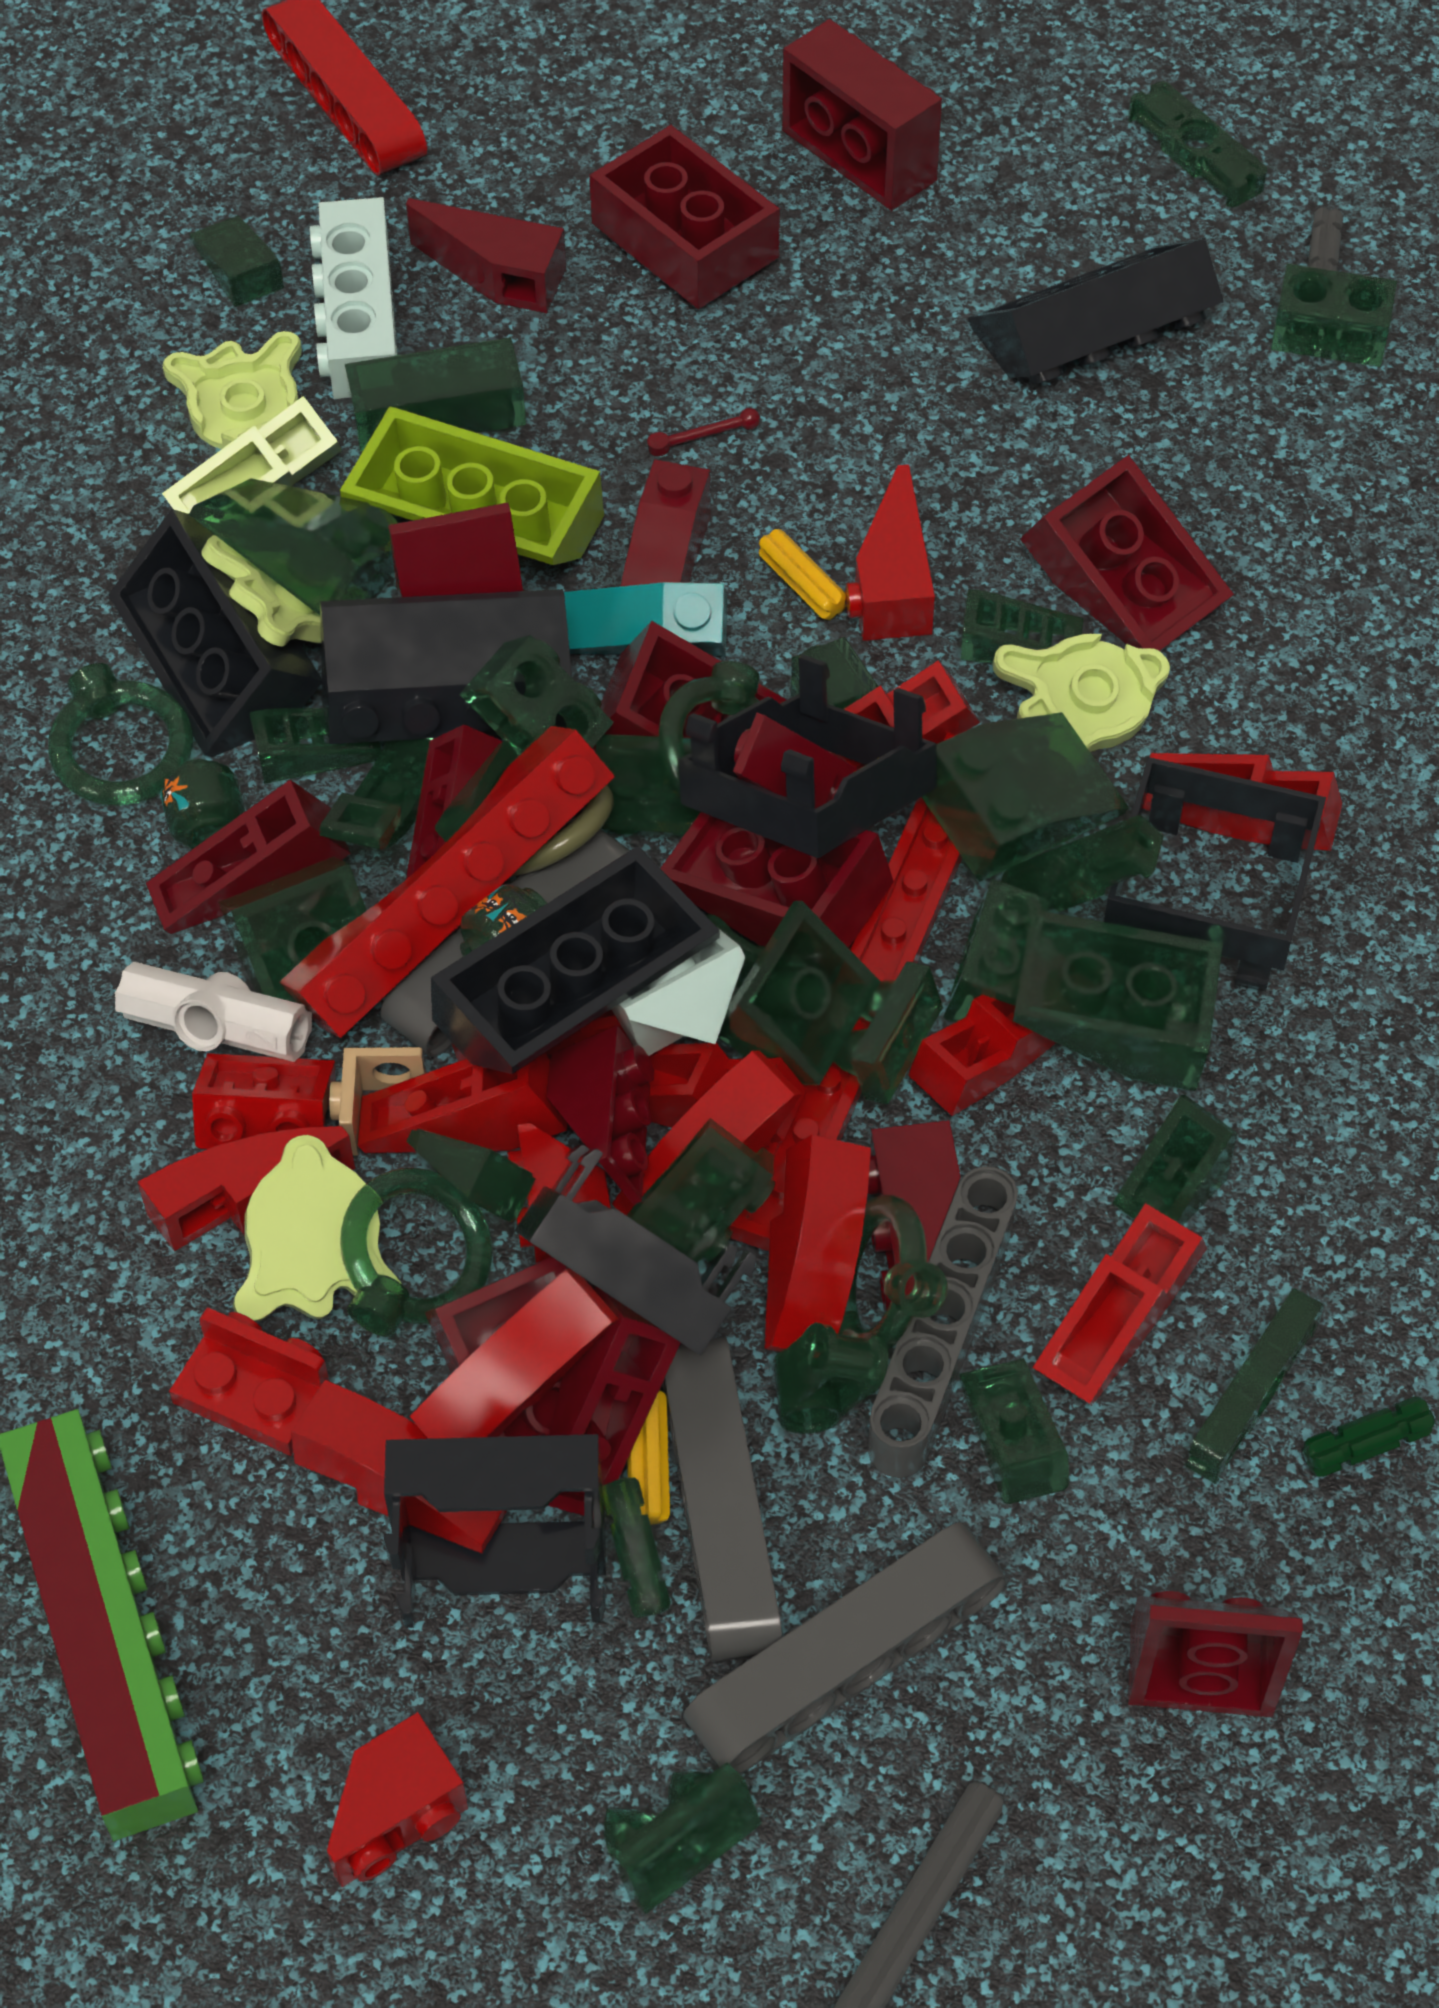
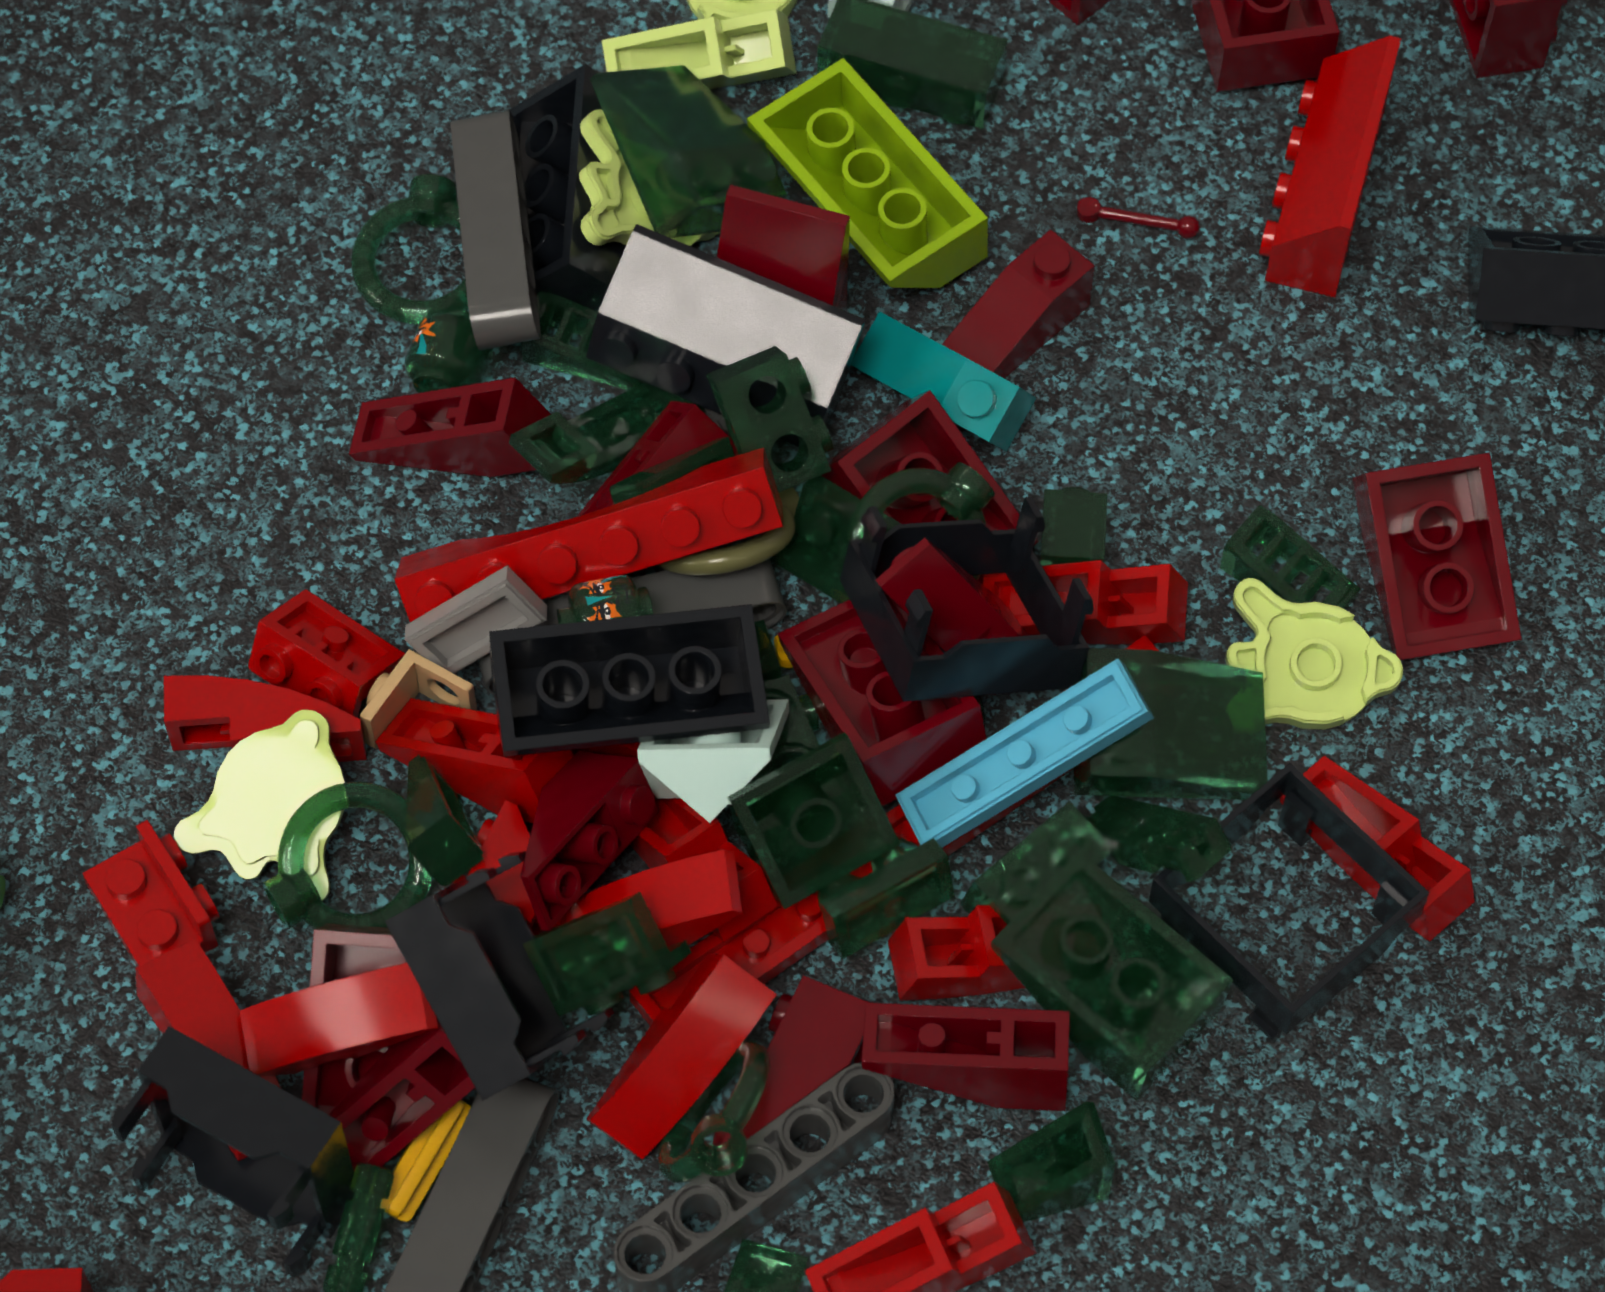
camera: 30 degrees right, 5 degrees up
(182, 678) = (495, 230): none -> dark grey beam
(213, 1011) = (331, 554): white piece -> none
(288, 919) = (446, 502): clear green slope -> none
(393, 990) = (460, 627): none -> light grey tile
(802, 574) = (1128, 408): yellow axle -> none
(826, 1377) = (611, 1177): clear green piece -> none
(840, 314) = (1329, 167): none -> red slope
(892, 574) = (1209, 444): red slope -> none
(936, 857) = (1025, 755): none -> medium azure tile
(1056, 1113) = (972, 1052): none -> dark red slope

